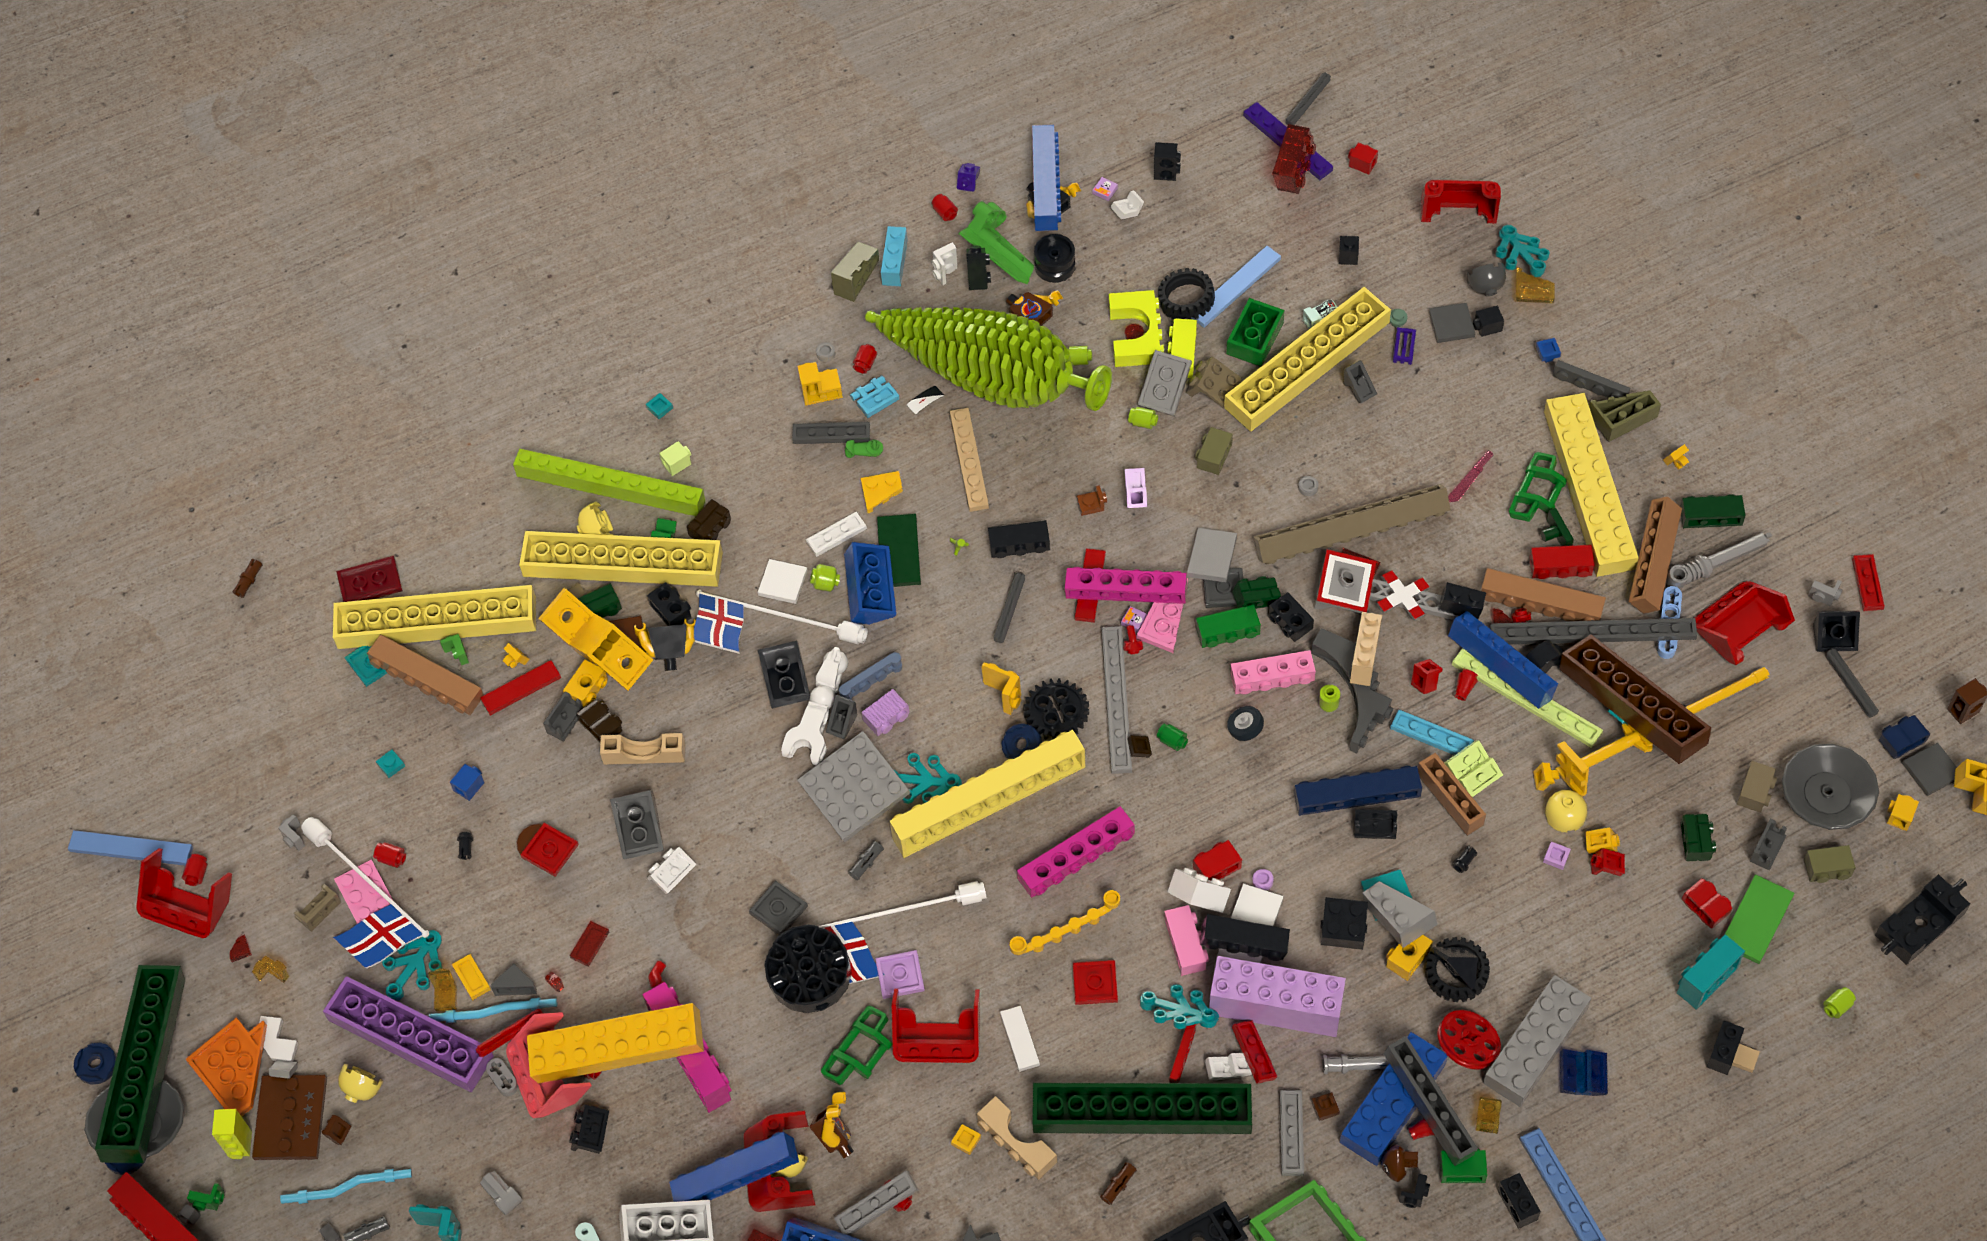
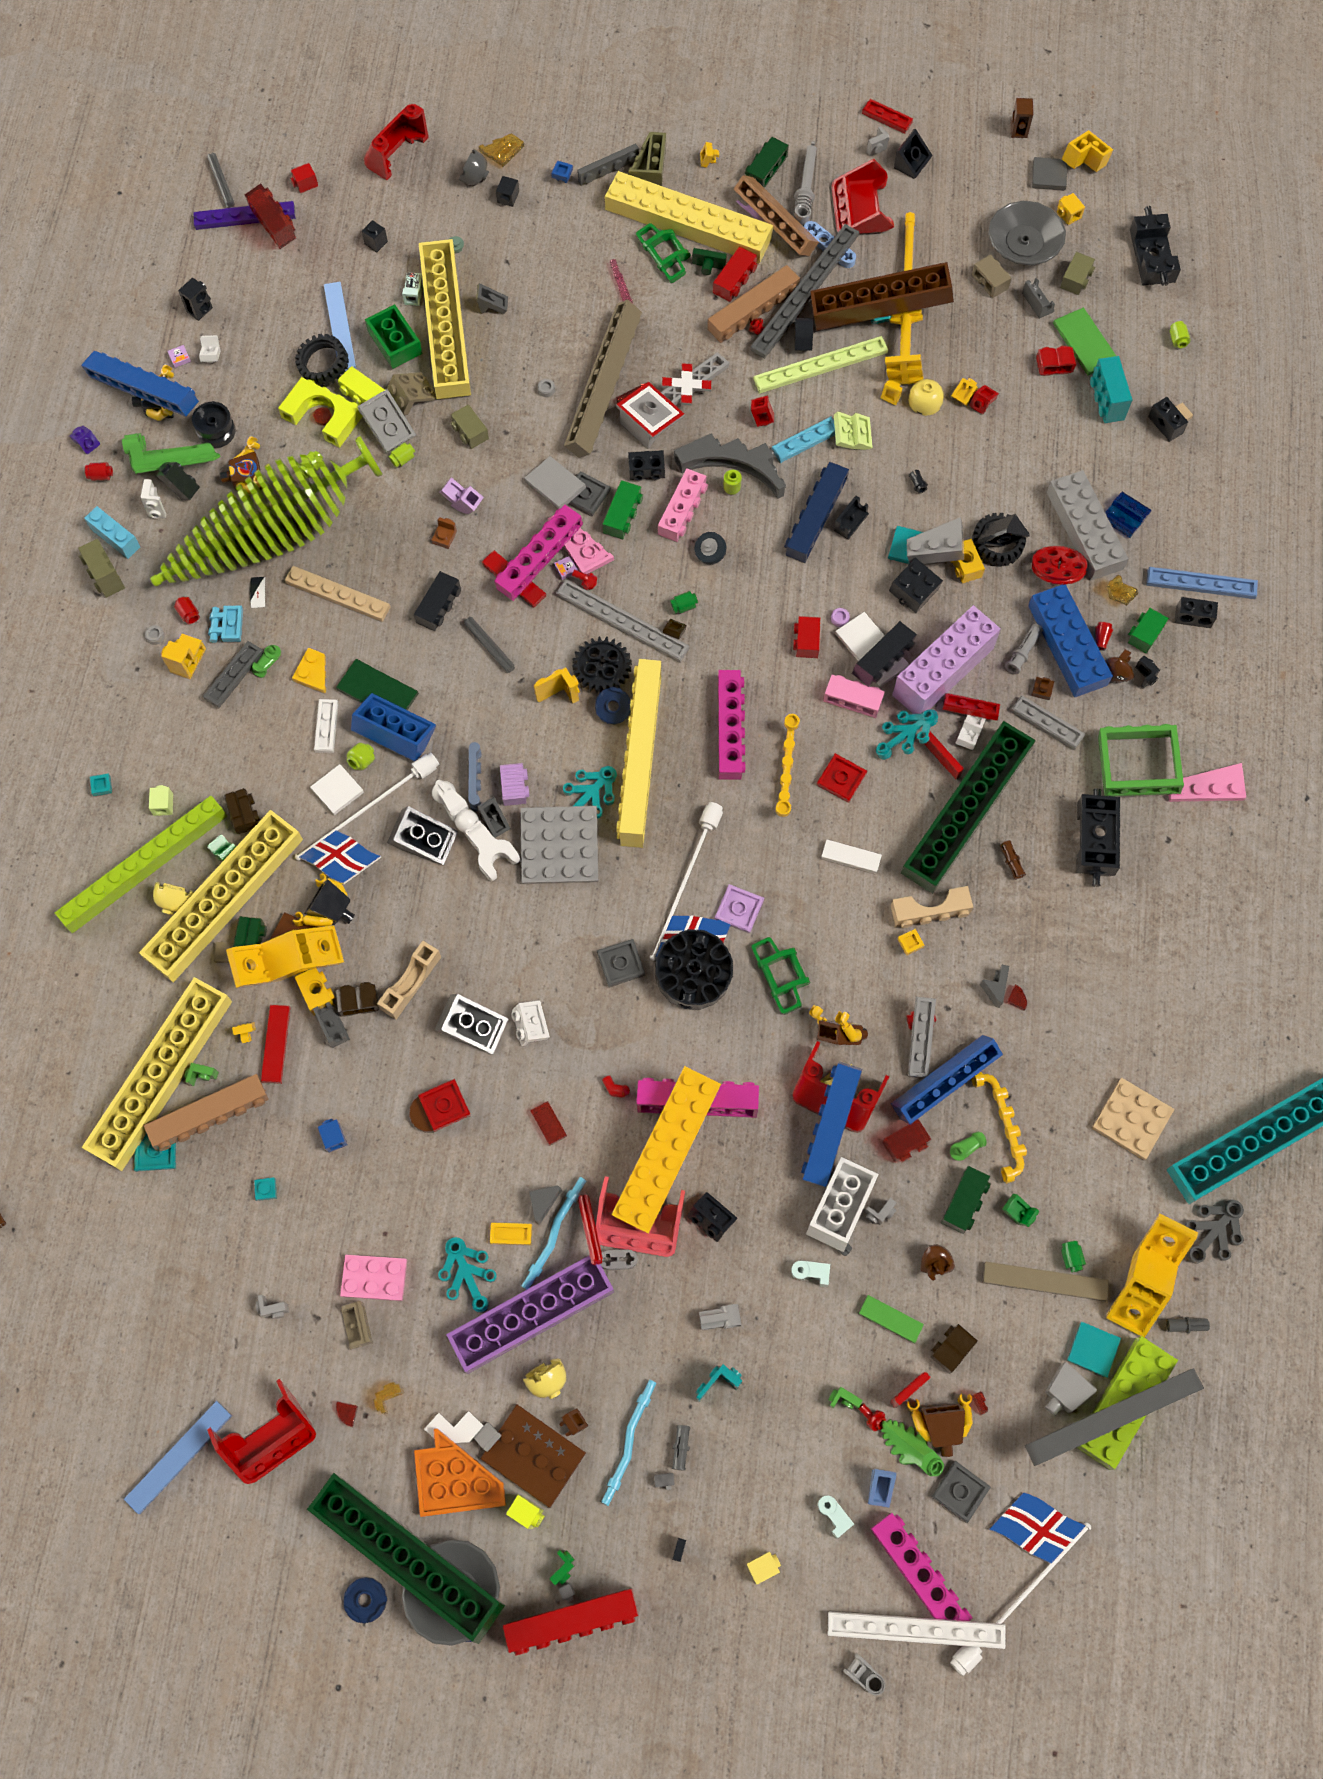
camera: 60 degrees left, 10 degrees up
(195, 870) = (244, 1411): red brick -> none
(370, 580) = (76, 1108): dark red tile -> none
(381, 931) = (421, 1284): flag -> none
(389, 854) = (352, 1236): red brick -> none
(445, 990) = (511, 1262): clear yellow bracket -> none
(465, 840) = (388, 1170): black pin -> none
(554, 981) = (563, 1169): clear red tile -> none
(666, 608) = (293, 890): black brick -> none
(874, 850) = (628, 874): dark grey pin -> none
(935, 1040) = (816, 911): red windscreen -> none
(958, 544) = (409, 645): lime bar -> none
(1198, 890) = (825, 662): white brick -> none
(1256, 592) = (612, 472): dark green brick -> none
(1365, 649) = (727, 437): tan arch -> none
(1403, 358) = (479, 257): dark purple tile -> none
(1430, 1101) = (1100, 613): dark grey brick -> none
(1451, 794) = (866, 455): medium nougat brick -> none
(1452, 322) = (487, 215): dark grey tile -> none
(1459, 599) = (722, 350): black brick -> none
(1466, 681) = (784, 393): red cone -> none
(1500, 617) = (747, 340): clear red tile -> none
(1503, 659) = (786, 356): blue brick -> none
(1509, 234) = (449, 134): teal plant -> none
(1557, 855) = (956, 424): lavender plate -> none
(1697, 837) = (1003, 334): dark green brick -> none
(1852, 683) = (956, 174): dark grey axle -> none
(1904, 736) = (1016, 171): dark blue brick -> none

